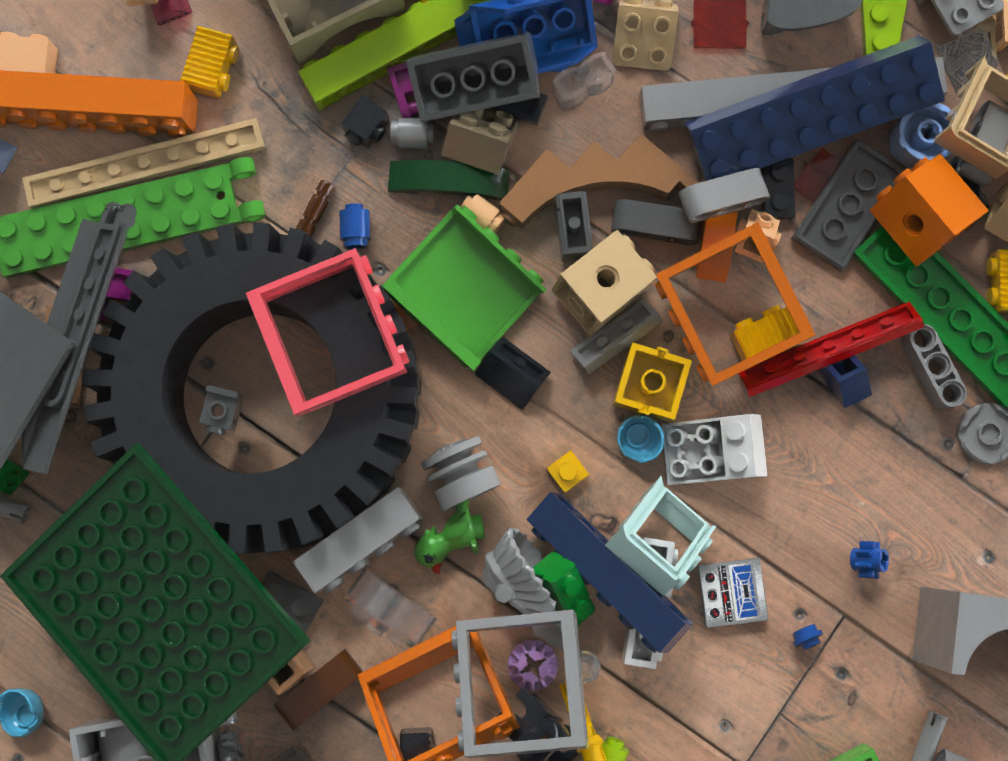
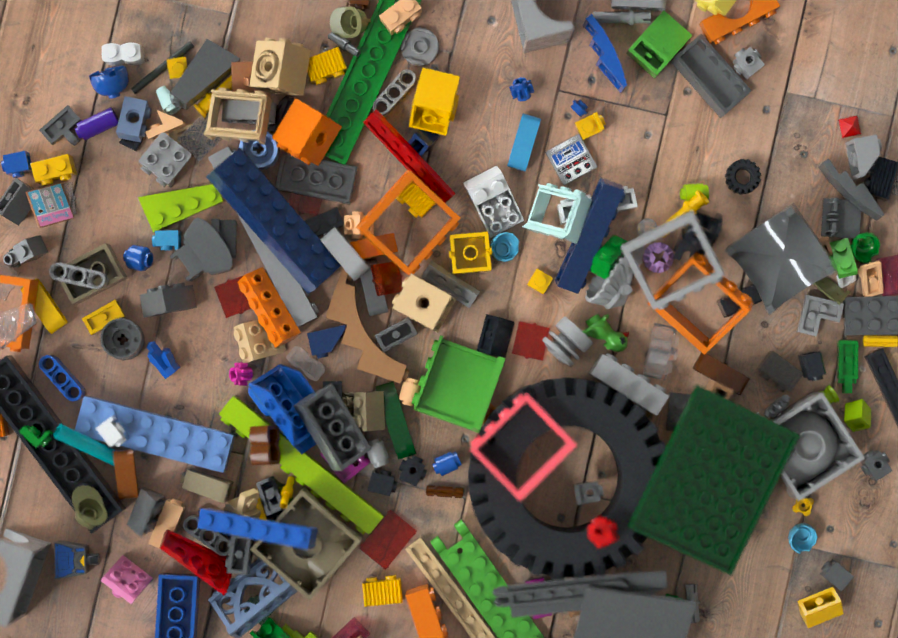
camera: 115 degrees left, 5 degrees up
(60, 735) = (806, 510): none -> yellow plate
(145, 401) = (603, 532): none -> red brick
(281, 102) = (388, 539): none -> clear red piece
(358, 164) = (409, 477): none -> black brick
(487, 419) = (529, 340): none -> clear red piece
(605, 121) = (325, 340): none -> dark blue slope
(662, 242) = (386, 278): none -> clear red piece
(687, 58) = (268, 307): none -> orange brick
(773, 642) = (590, 125): none -> yellow bracket
(786, 531) = (524, 142): none -> dark azure beam
(815, 44) = (228, 231): none -> dark grey panel
(871, 711) = (608, 60): none -> blue slope
(904, 417) = (434, 101): none -> yellow brick

